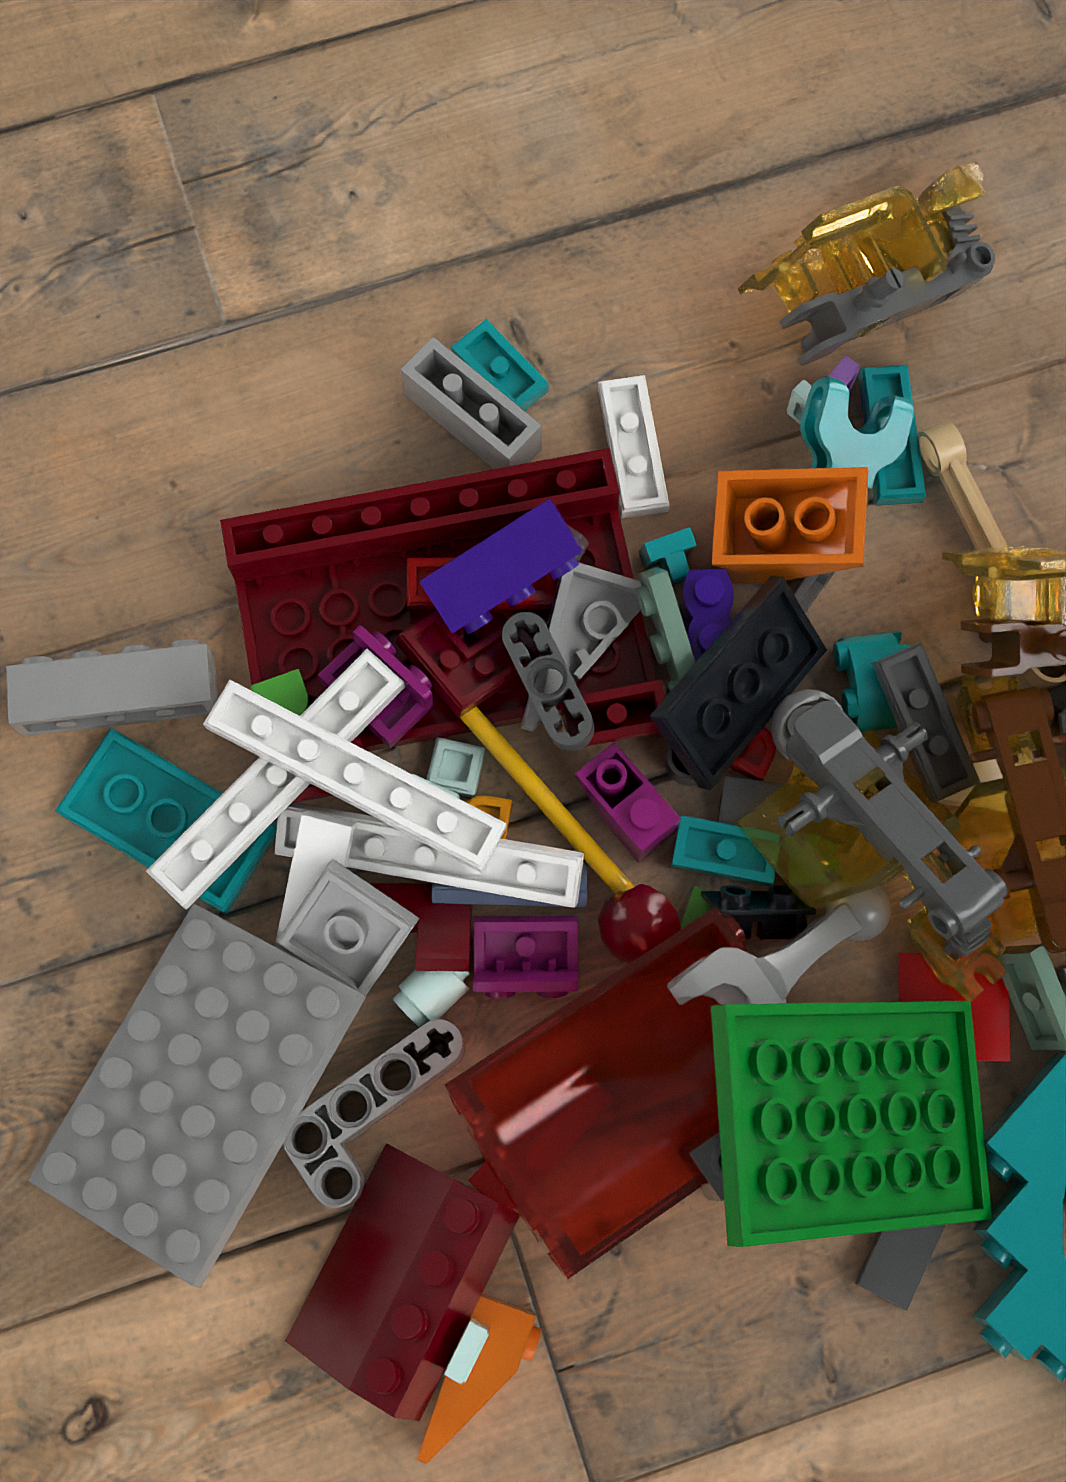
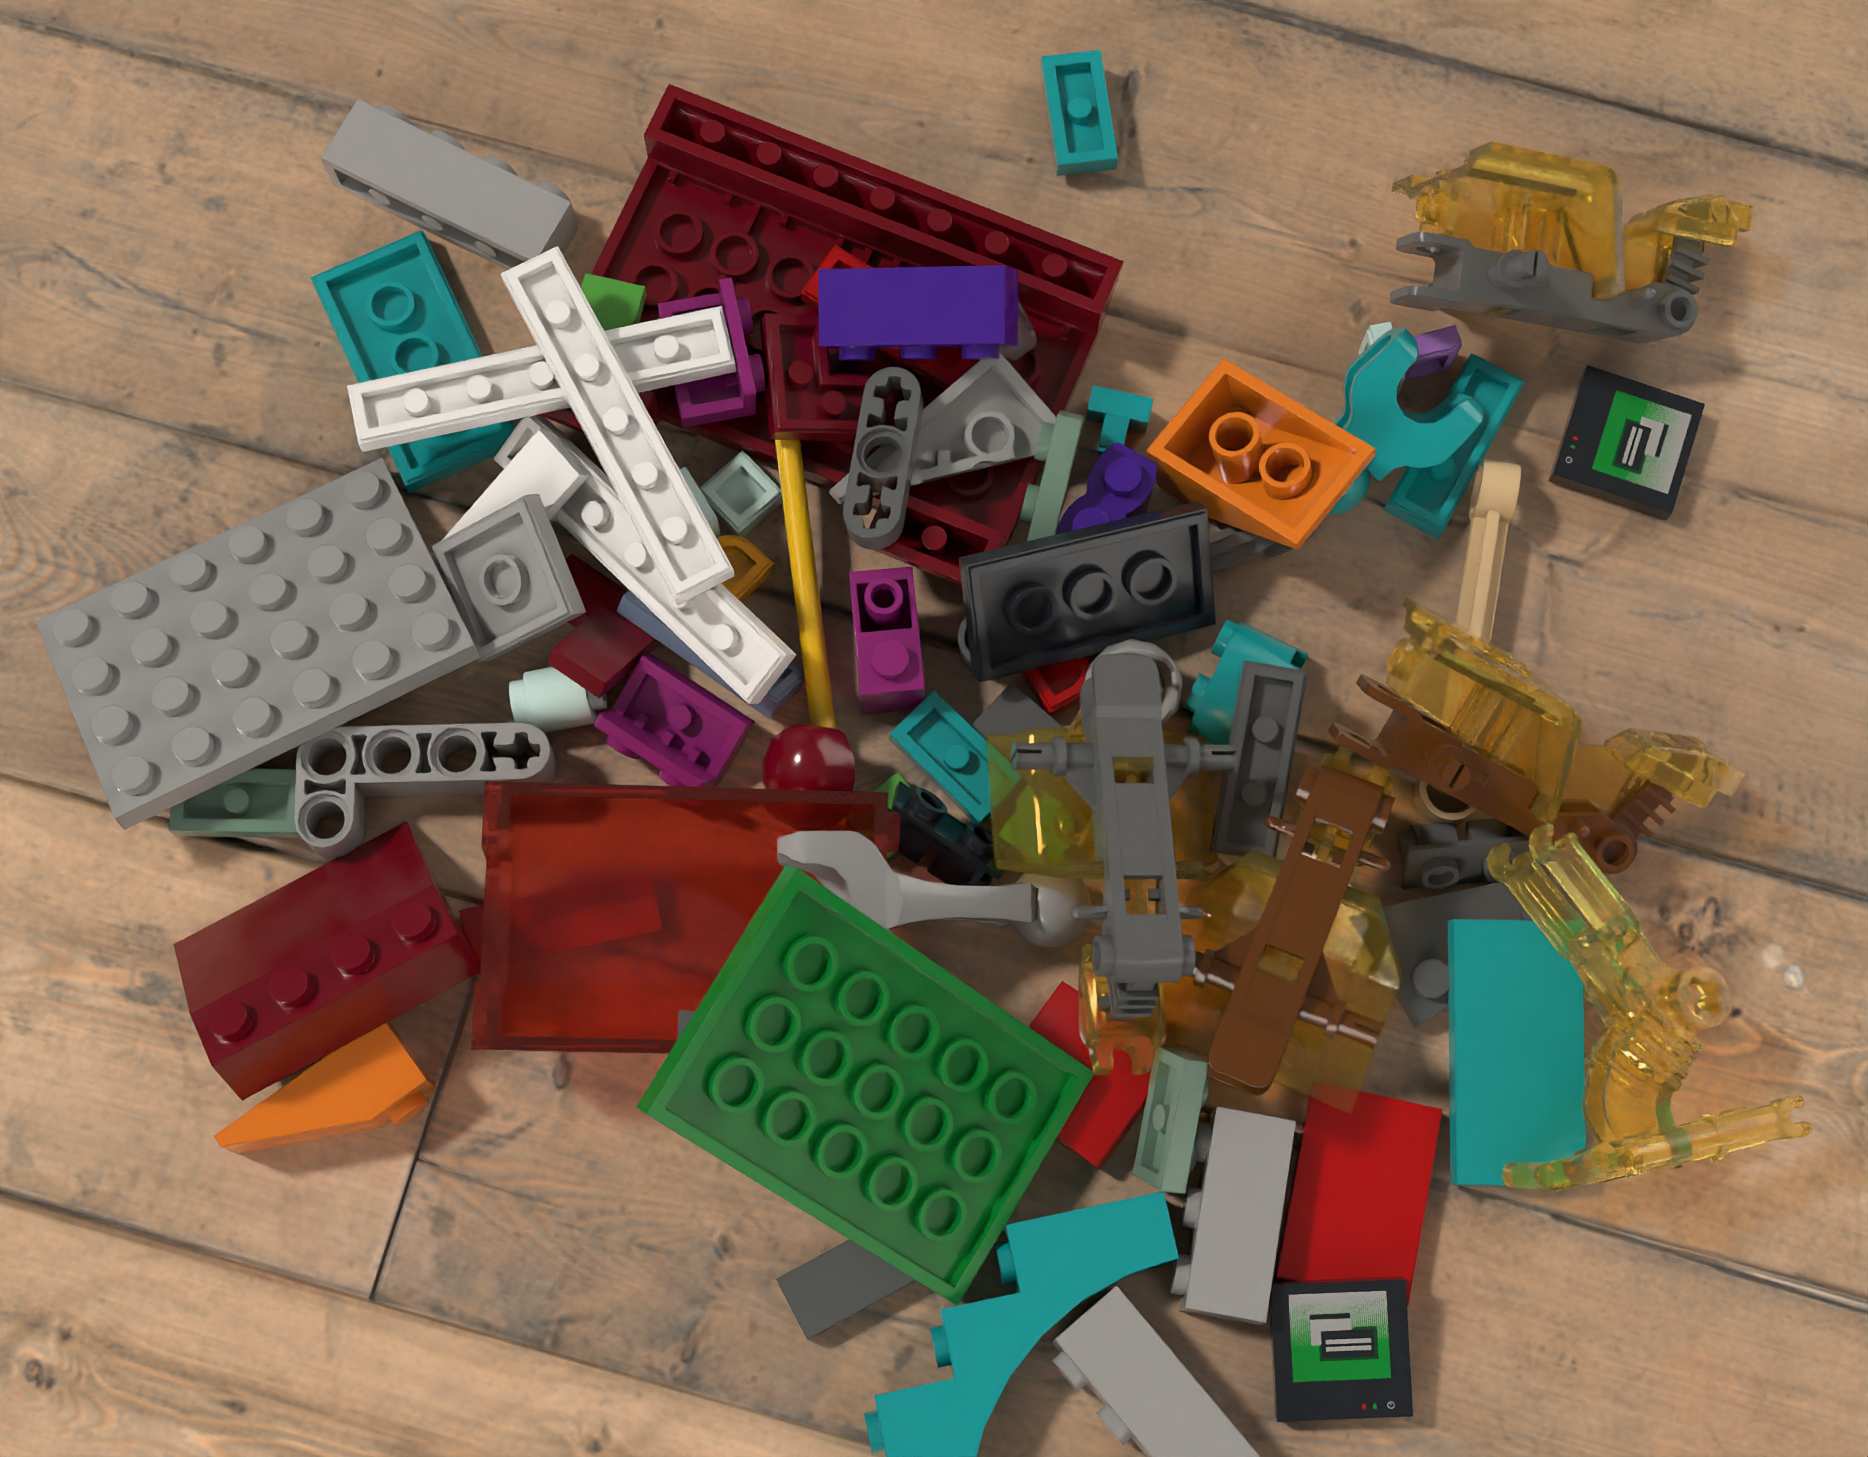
camera: 30 degrees right, 0 degrees up
(276, 1205) = (244, 806): none -> sand green plate
(467, 1351) = (332, 1060): light aqua tile -> none
(470, 407) = (1014, 131): light grey brick -> none
(633, 446) = (1164, 283): white tile -> none
(996, 364) = (1626, 442): none -> tile

